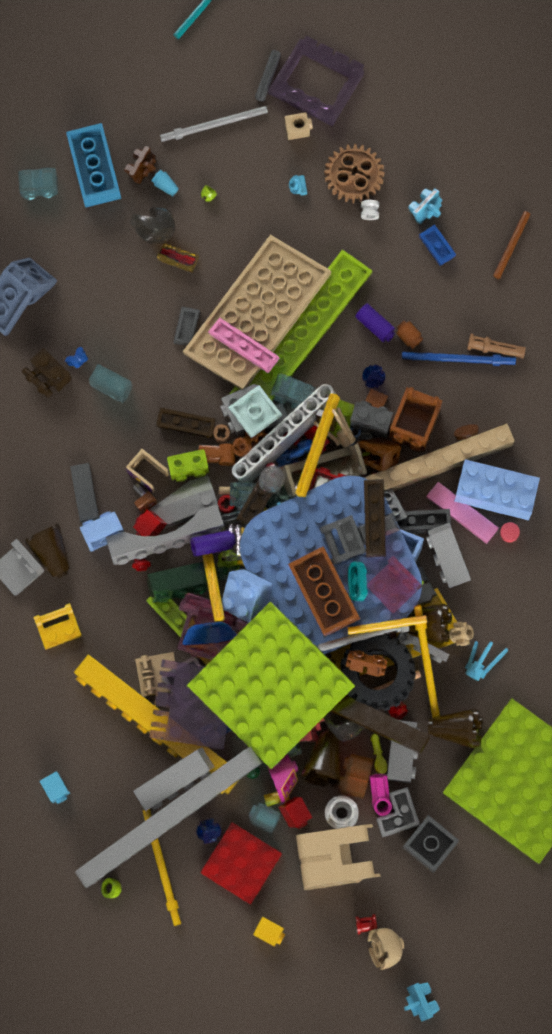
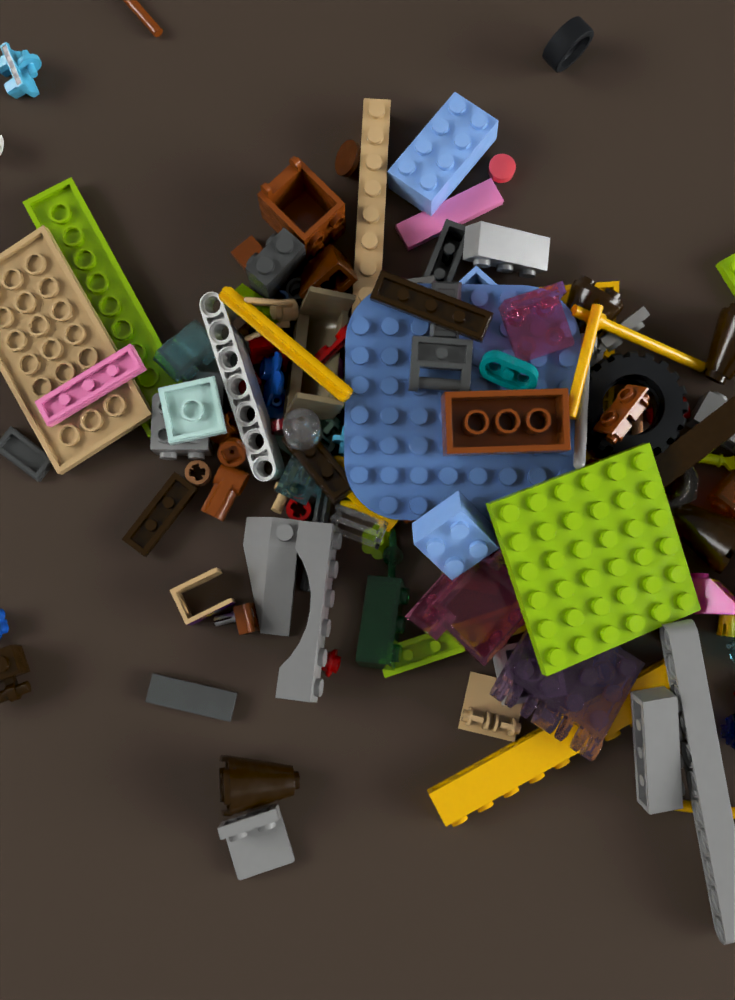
camera: 75 degrees left, 5 degrees up
(55, 788) = (594, 922): medium azure brick -> none
(60, 632) = (374, 818): yellow plate -> none
(97, 531) = (258, 703): light blue slope -> none
(110, 383) = (53, 593): clear light blue brick -> none
(149, 524) = (282, 628): red brick -> none
(188, 465) = (221, 536): lime bracket -> none
(205, 634) = (480, 609): blue piece -> none
(212, 543) = (351, 551): dark purple brick -> none
(213, 587) = (408, 574): yellow axle -> none
(373, 376) = (216, 239): clear blue gear -> none
(375, 323) = (145, 205): dark purple brick -> none
(409, 334) = (181, 170): dark orange brick -> none
(437, 245) = (79, 83): blue plate -> none
(461, 633) = (618, 279): tan gear -> none
(476, 669) = (665, 287): medium azure plant -> none
(487, 344) = (244, 82): medium nougat pin -> none
(495, 360) = (268, 84): blue bar -> none

